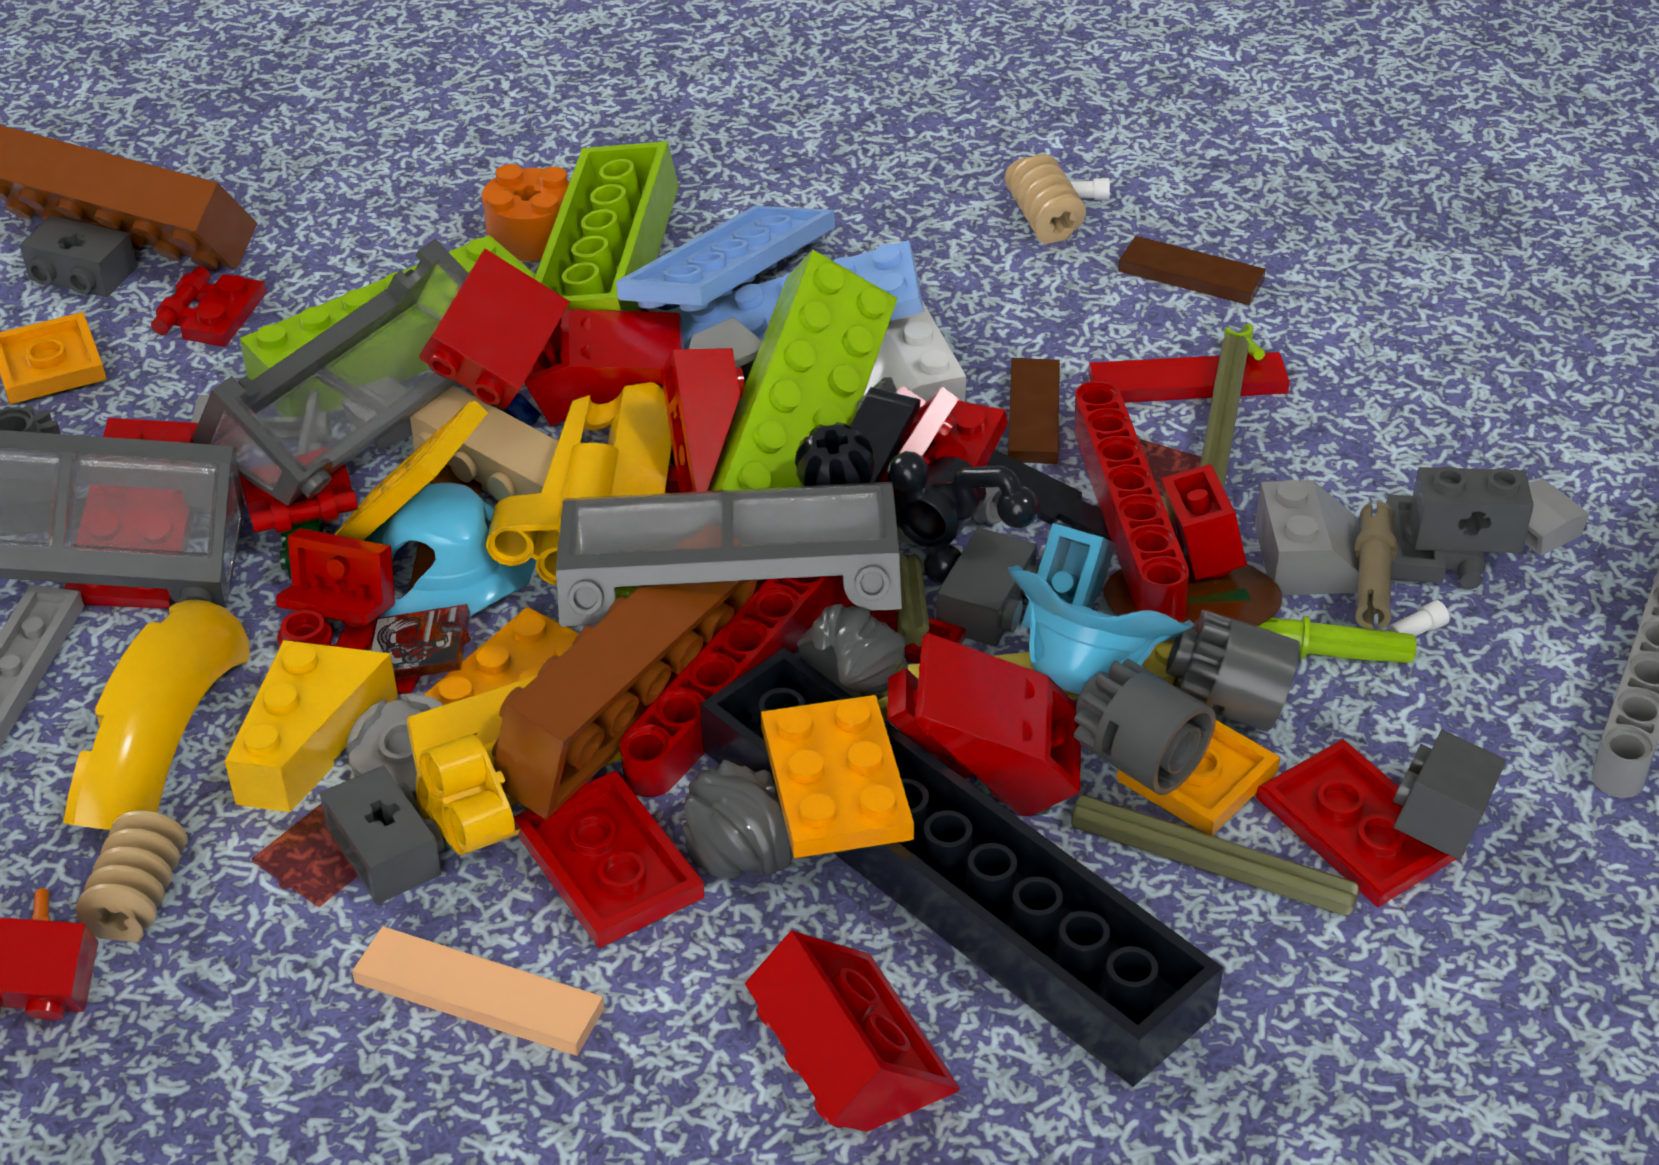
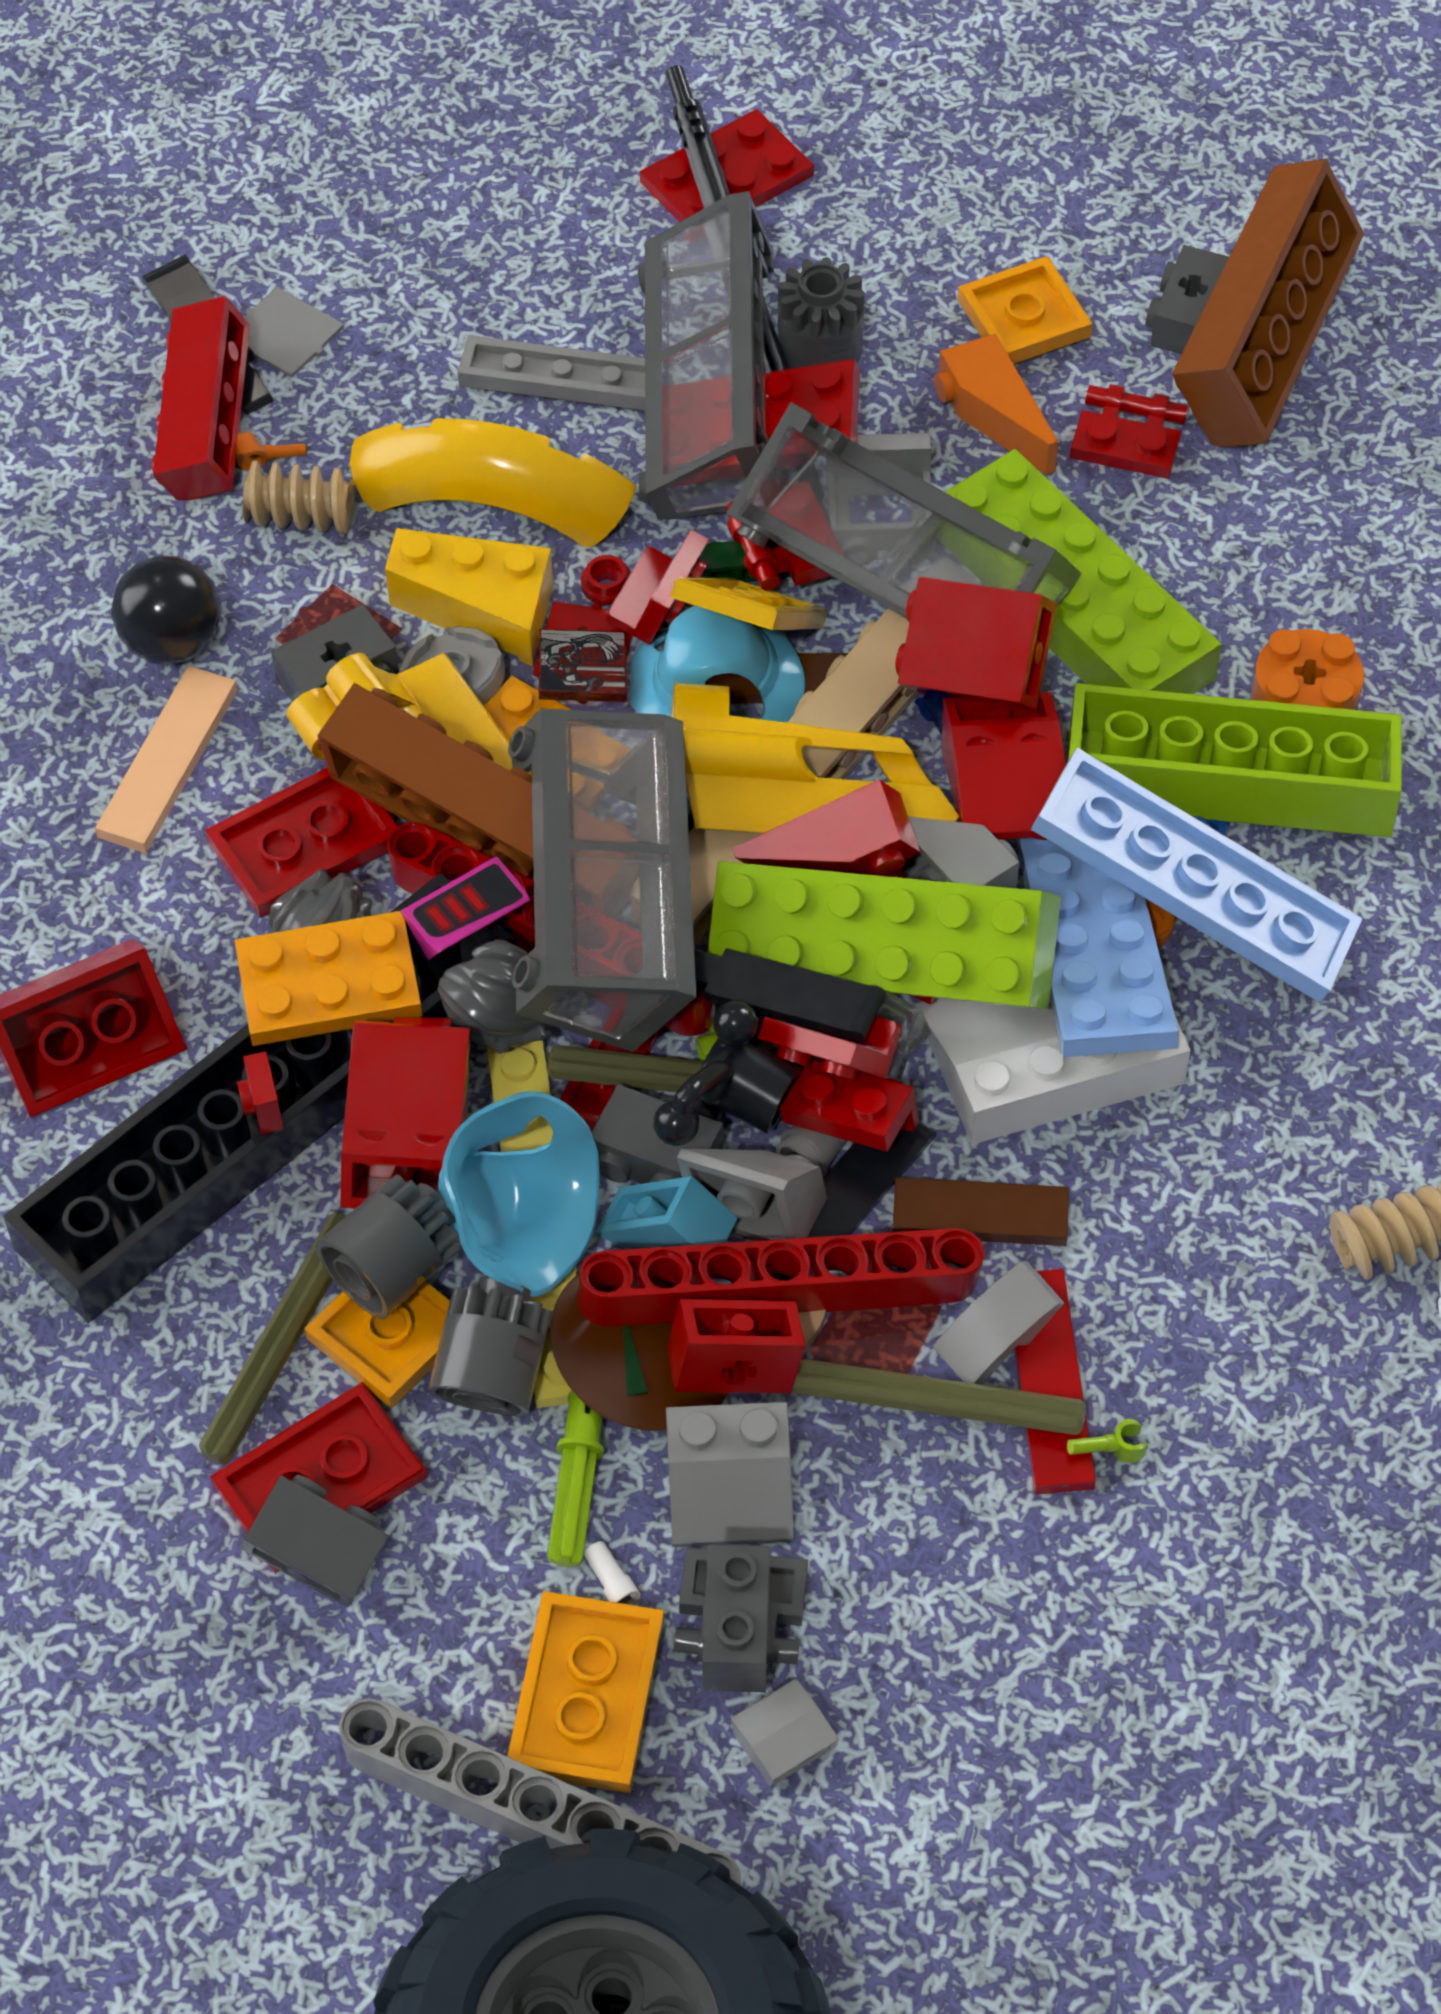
camera: 90 degrees right, 15 degrees up
(160, 369) = (995, 400): none -> orange slope
(288, 967) = (166, 609): none -> black piece
(766, 661) = (464, 907): none -> slope
(834, 456) = (735, 949): black piece -> none
(990, 804) = (259, 1093): none -> red plate
(1061, 487) = (763, 1189): none -> light grey slope
(1161, 392) = (997, 1322): none -> light grey slope
(1192, 270) = (1276, 1404): reddish brown tile -> none
(1375, 552) = (665, 1517): dark tan pin -> none
(1536, 630) = (587, 1690): none -> light orange plate

